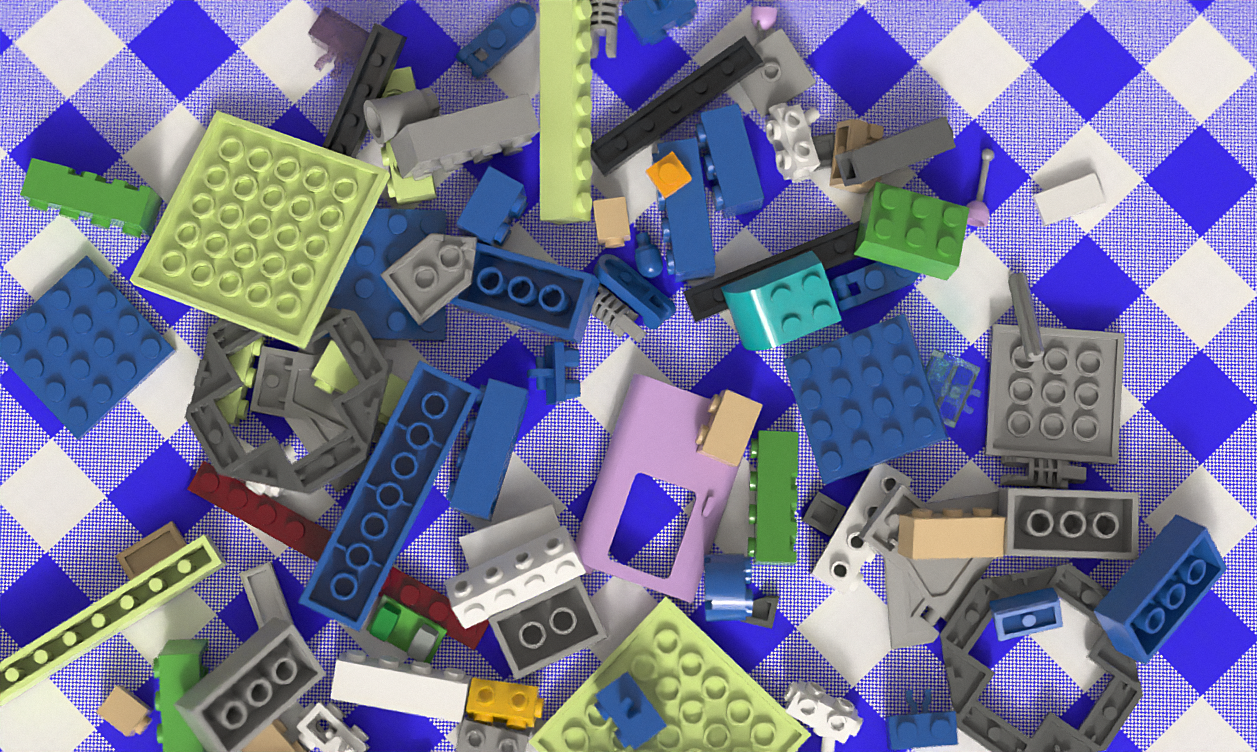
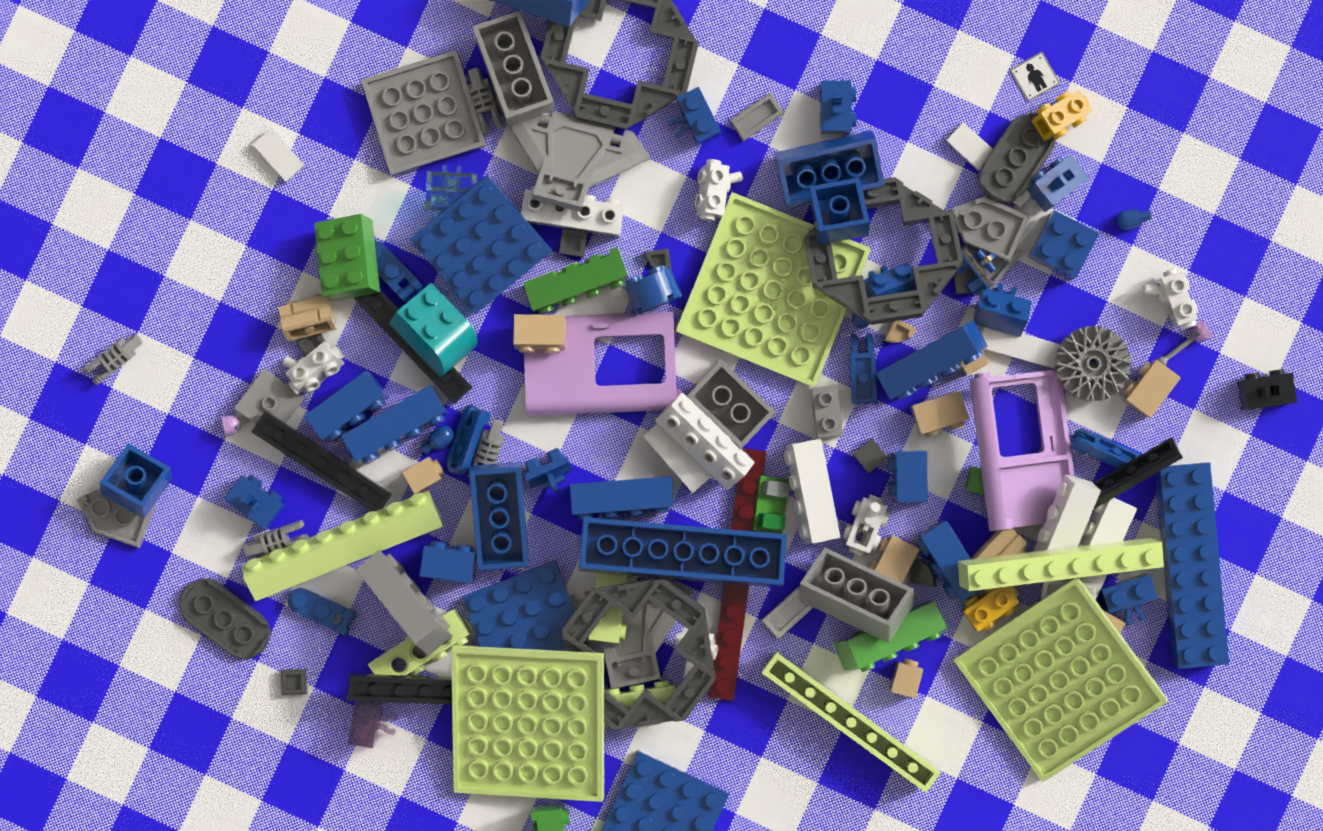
camera: 110 degrees left, 5 degrees up
(151, 550) = (787, 707): tan tile -> none
(391, 114) = (406, 655): light grey plant -> none
(432, 273) = (512, 586): light grey tile -> none
(504, 703) = (795, 414): yellow brick -> none
(630, 711) = (766, 323): blue brick -> none
(668, 175) = (376, 444): light orange plate -> none
(895, 151) = (294, 291): dark grey brick -> none
(951, 534) = (553, 146): tan brick -> none
(978, 211) = (313, 215): hinge -> none
(1026, 317) = (377, 153): light grey axle -> none
(1026, 613) = (588, 73): blue slope -> none

